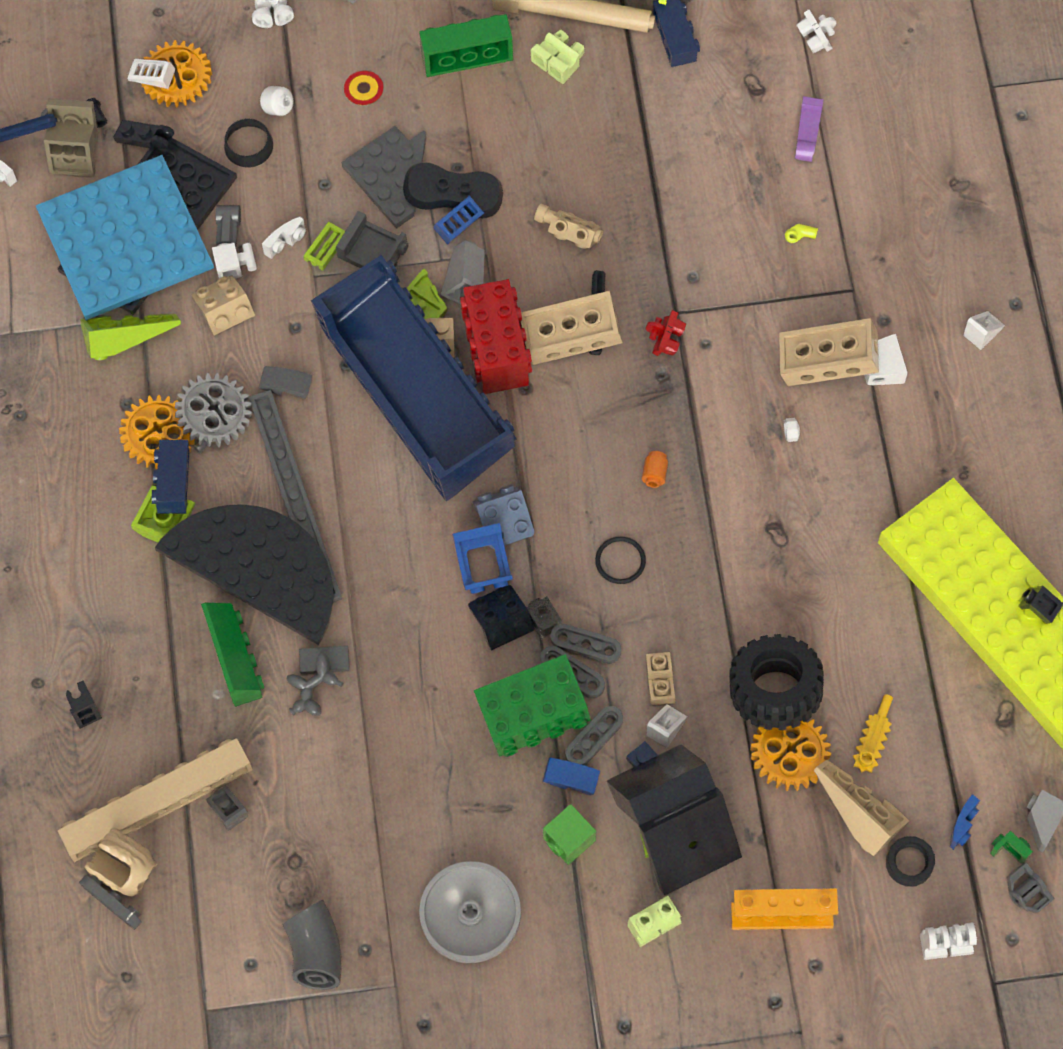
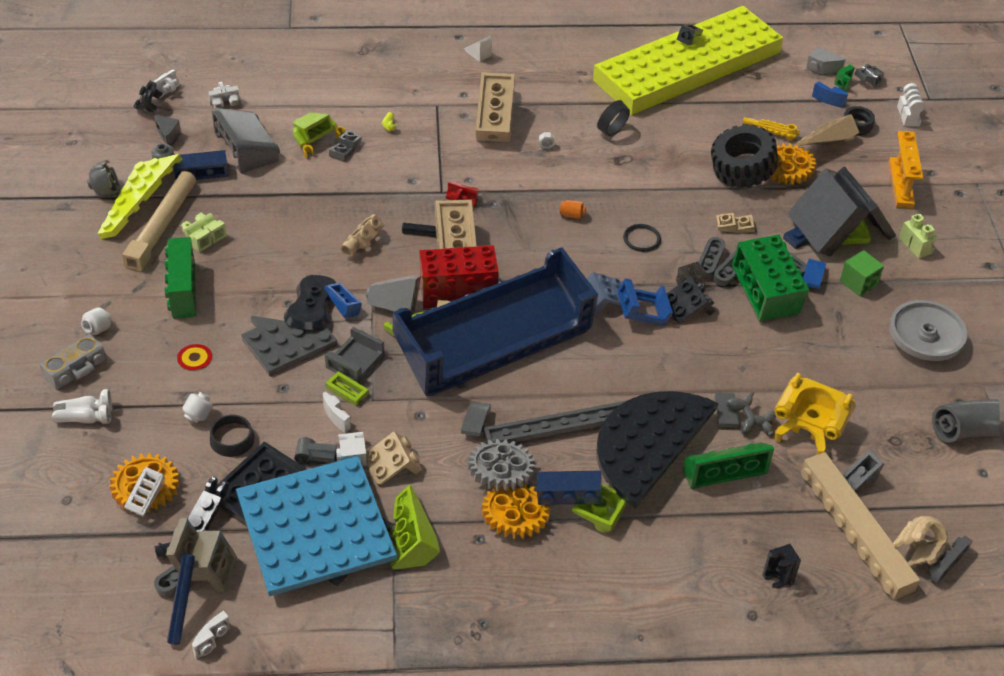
camera: 90 degrees left, 20 degrees down
(321, 731) = (815, 409): none -> yellow piece
(665, 725) = (774, 221): white slope -> none
(729, 65) = (245, 137): none -> dark grey windscreen
(749, 190) = (346, 145): none -> dark grey slope
(762, 141) = (313, 127): none -> lime torso
(808, 128) = (299, 108): medium lavender leg -> none
(839, 509) = (608, 115): none -> black tyre

